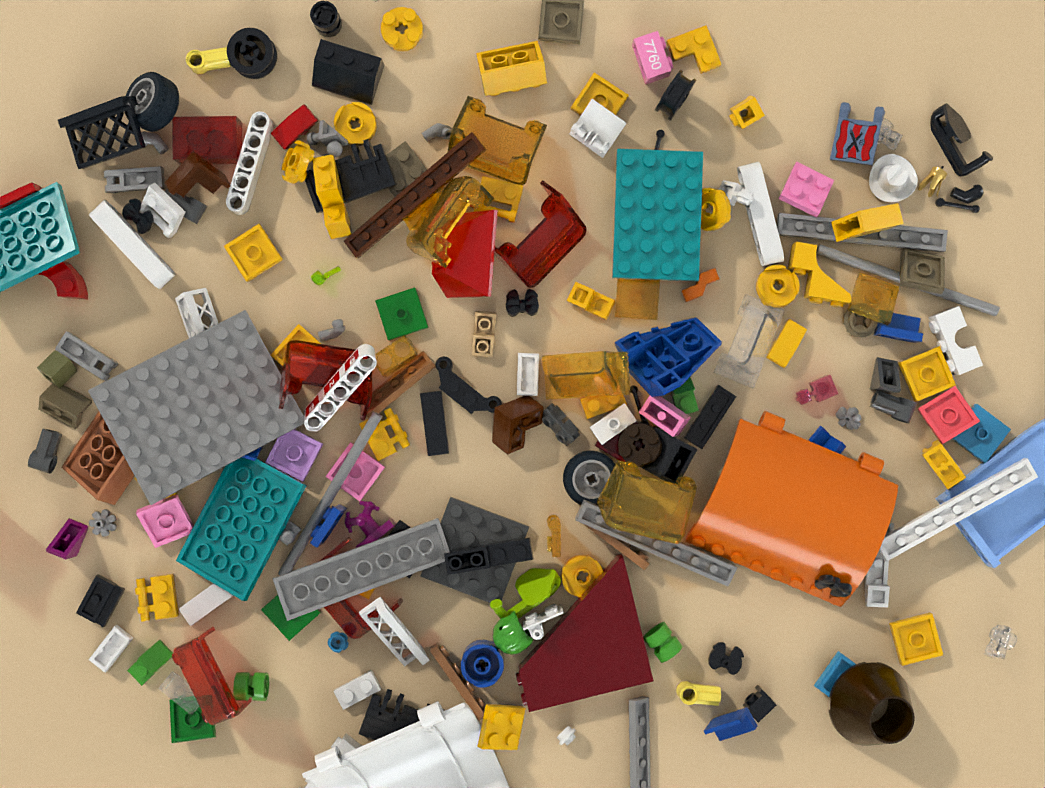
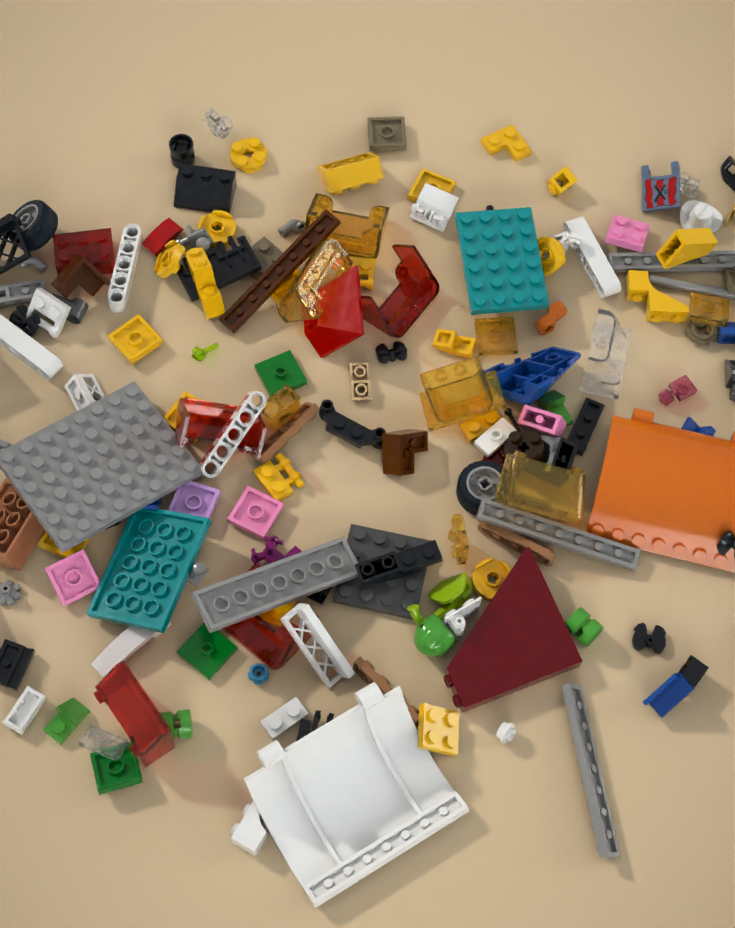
camera: 15 degrees left, 25 degrees down
(163, 596) = (75, 654): yellow plate -> none
(211, 60) = (73, 195): light yellow piece -> none
(243, 43) = (116, 176): black wheel -> none
(331, 492) = (238, 524): light grey piece -> none
(331, 519) = (236, 558): blue plate -> none
(338, 328) = (220, 395): light grey arm -> none
(434, 423) = (325, 463): black tile -> none
(474, 672) = (413, 658): blue brick -> none
(528, 374) = (407, 409): white plate -> none
(565, 432) = (440, 446): dark grey hinge -> none
(652, 57) = (470, 151): bright pink brick -> none
(675, 95) = (497, 172): black wheel -> none
(700, 694) = (631, 673): light yellow piece -> none
(769, 295) = (630, 308): yellow plate -> none
(786, 343) = (640, 356): yellow slope -> none
(849, 417) = (712, 409): light grey plant -> none

